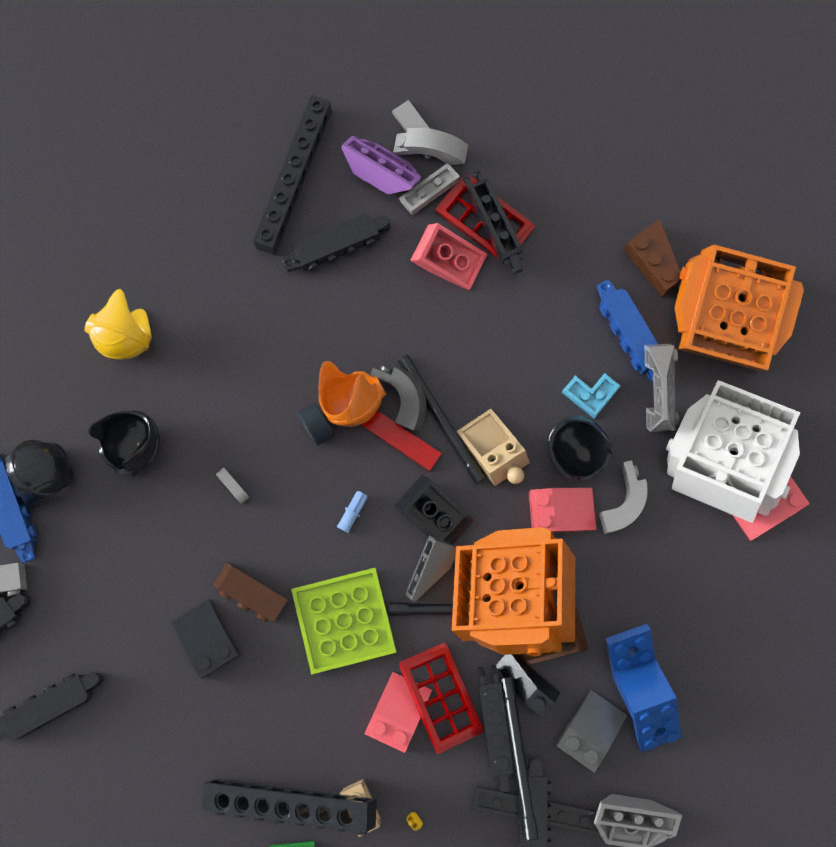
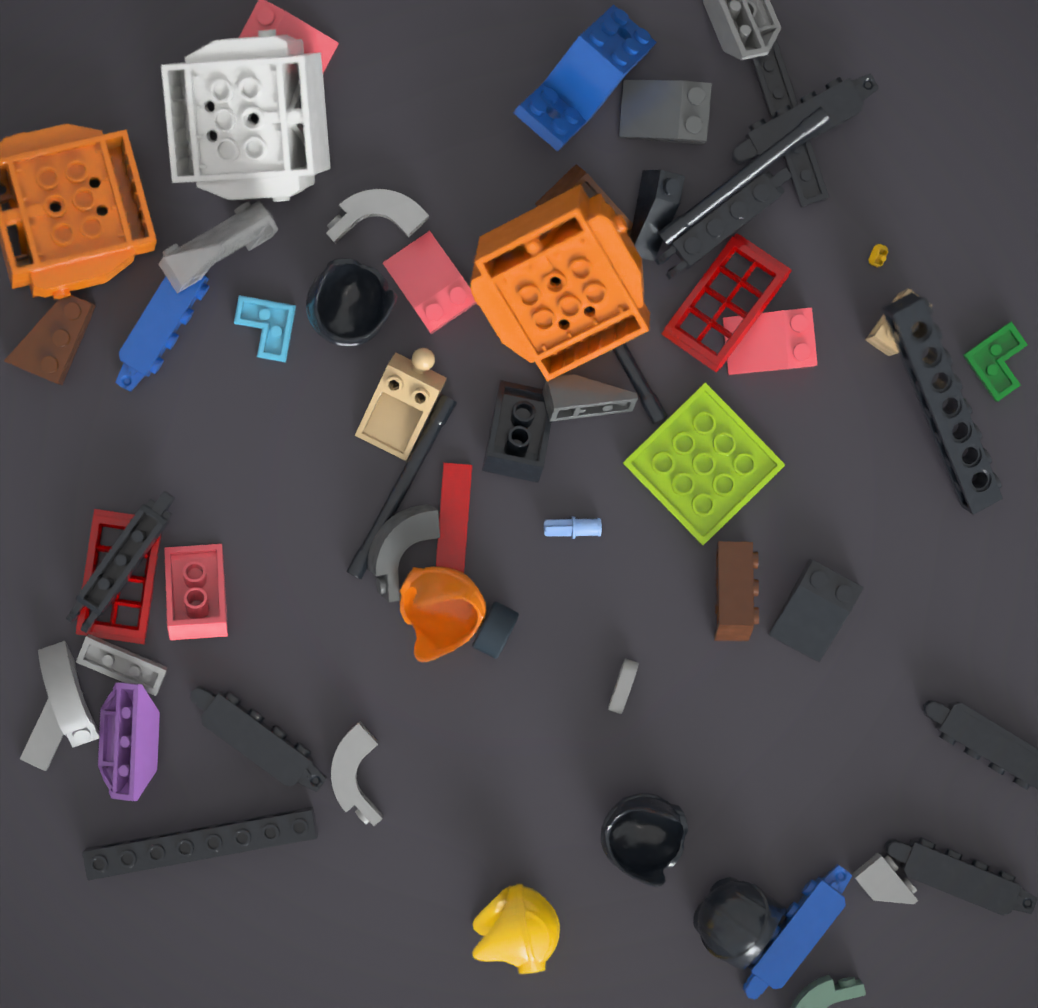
camera: 120 degrees left, 10 degrees up
(281, 282) = (344, 768): none -> light grey arch

